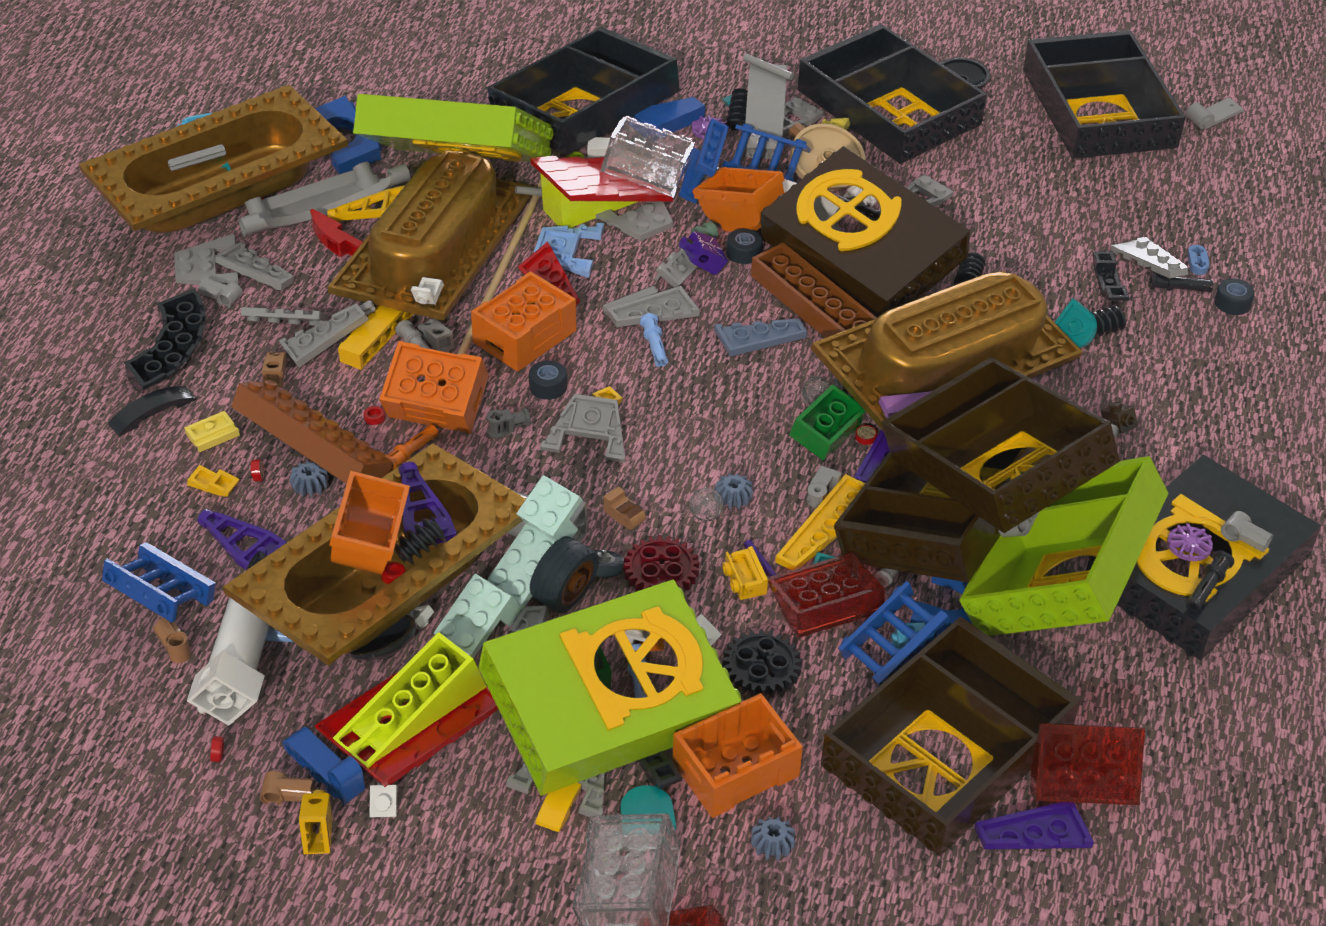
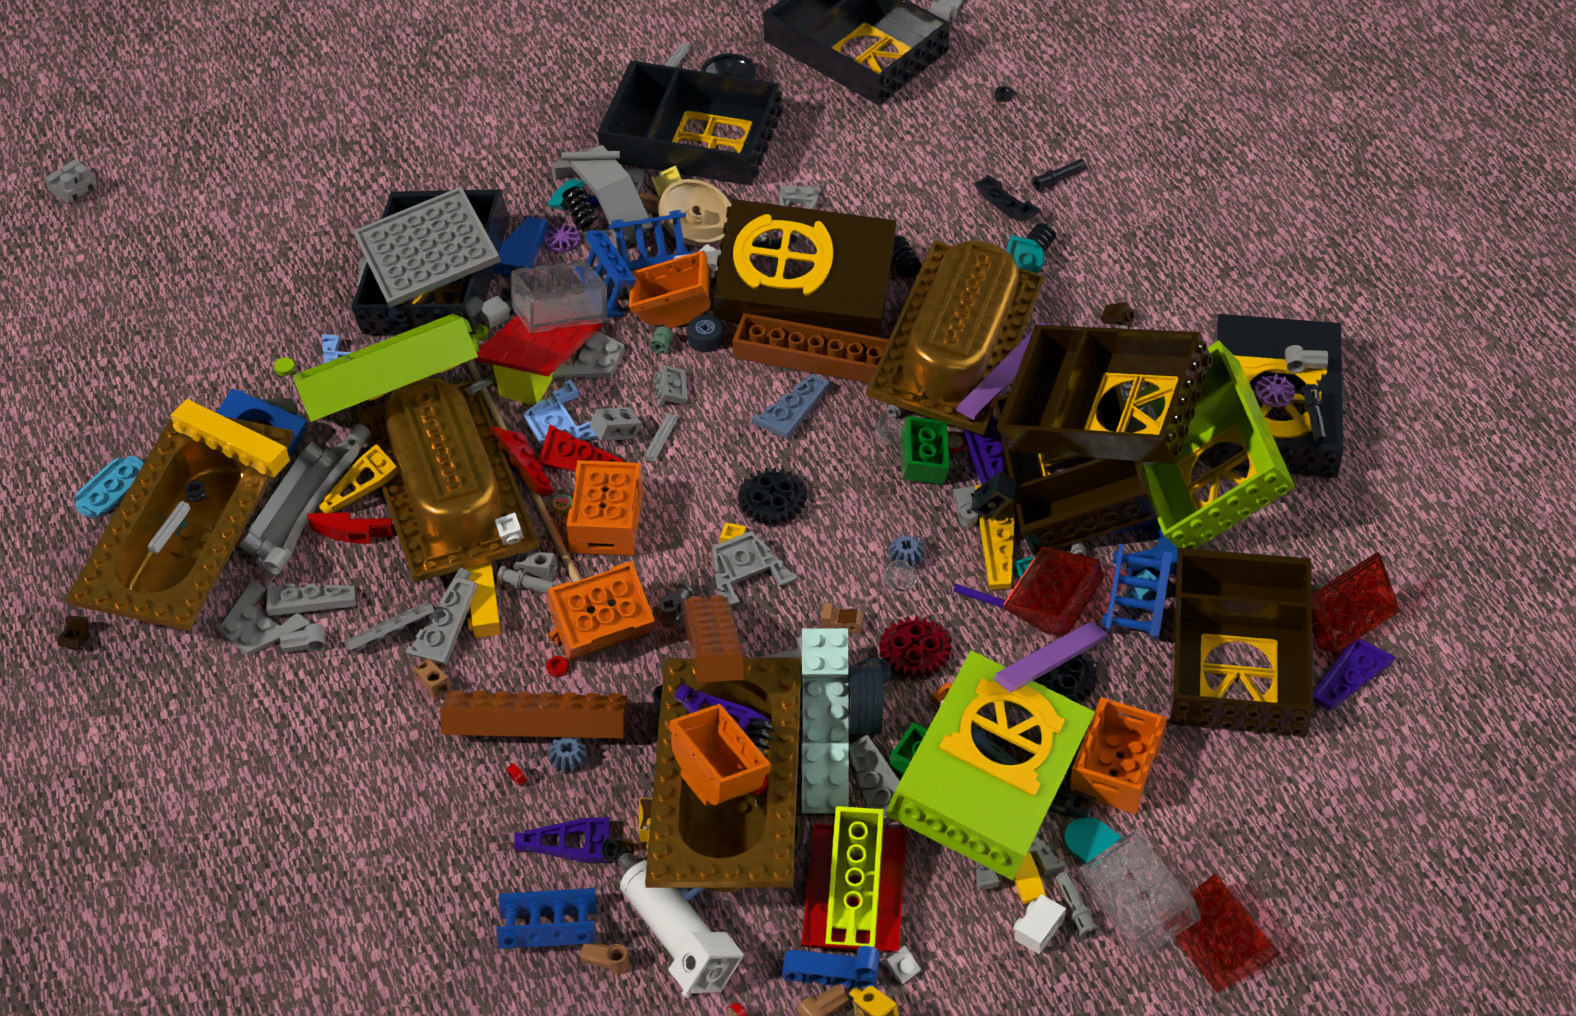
camera: 35 degrees left, 5 degrees up
(82, 203) = (75, 632): none -> dark brown bracket
(148, 405) = (359, 782): black slope -> none
(181, 334) = (324, 708): black brick -> none
(212, 431) = (438, 767): light yellow plate -> none
(215, 483) = (492, 807): yellow slope -> none
(240, 144) = (195, 486): none -> black bush
(292, 118) = (230, 438): none -> yellow brick
(402, 453) = (619, 683): orange pin -> none
(479, 449) = (713, 639): none -> dark orange brick
(507, 256) = (523, 458): none -> red wing
(527, 846) = (1039, 923): none -> white brick
(548, 380) = (669, 547): black wheel -> none
(572, 863) = (1080, 914): none -> light grey pin
(578, 70) = (426, 246): none -> light grey plate
(600, 269) = (615, 424): none -> light grey brick
(653, 333) = (710, 455): light blue pin -> none
(666, 305) = (690, 430): light grey wing -> none
(669, 389) = (772, 496): none -> black gear
(704, 252) = (679, 355): dark purple torso -> none
(745, 573) = (981, 612): yellow hinge -> none
(751, 634) = (1050, 656): none -> medium lavender tile
(773, 837) = (1194, 798): sand blue gear -> none
(842, 484) = (994, 495): none -> black brick
(938, 47) = (678, 54): none -> light grey axle
(1152, 256) = (1022, 163): light grey wing -> none
(1194, 201) = (1003, 93): none -> black tile
(1194, 260) = (1049, 147): medium blue beam -> none
(1234, 296) = (1108, 164): black wheel -> none

